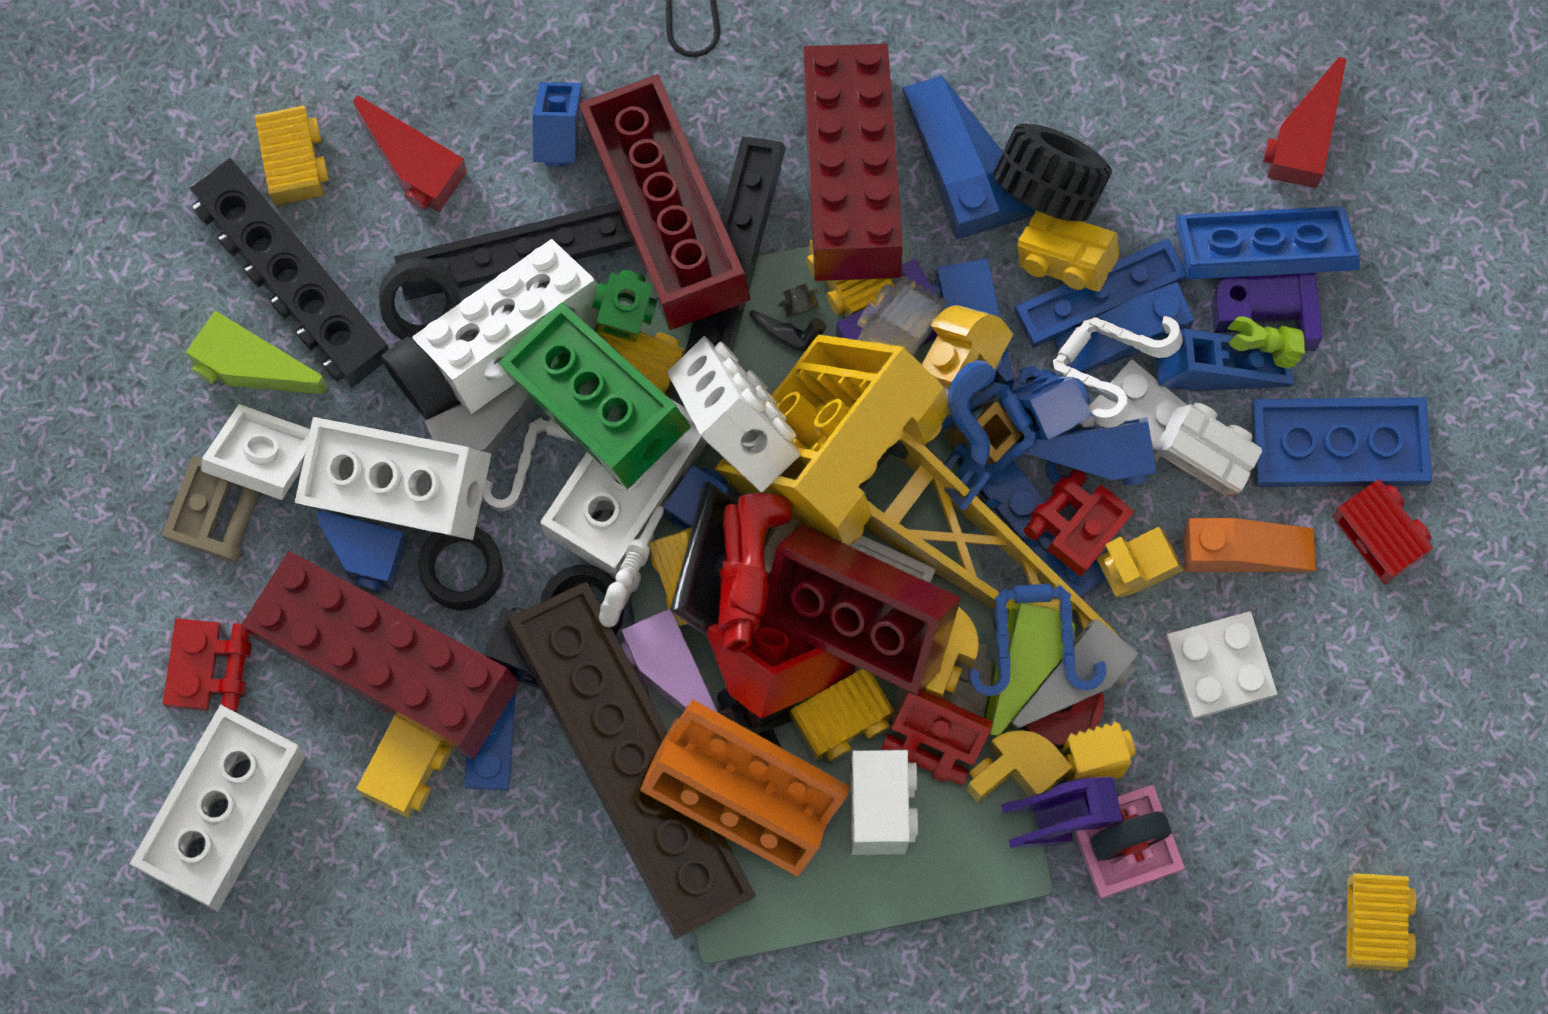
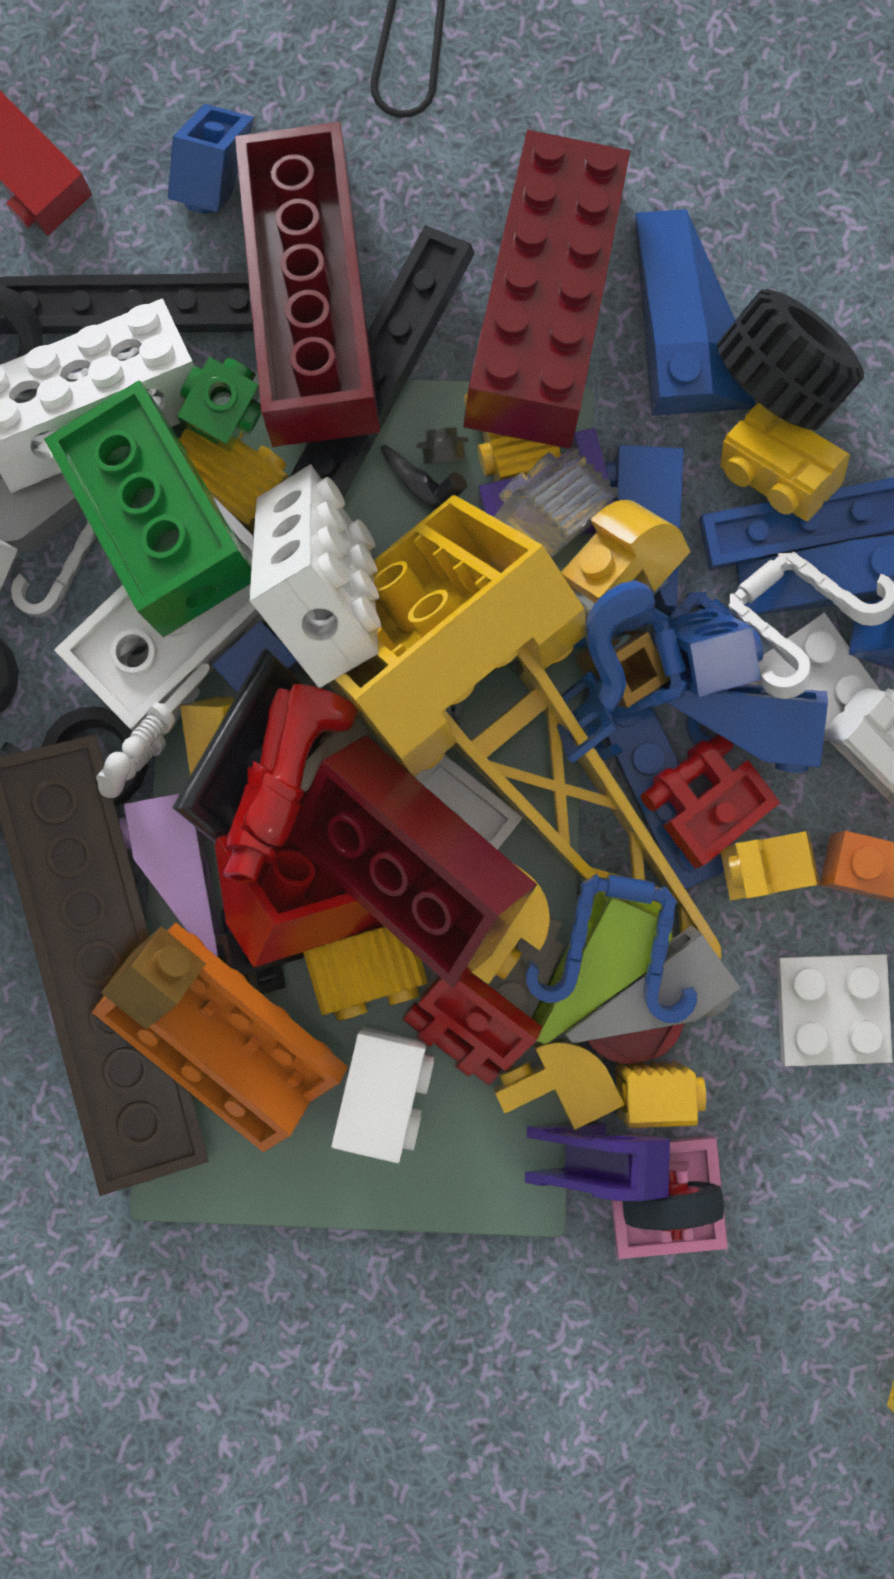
camera: 10 degrees right, 10 degrees up
(687, 742) = (154, 978): none -> pearl gold brick

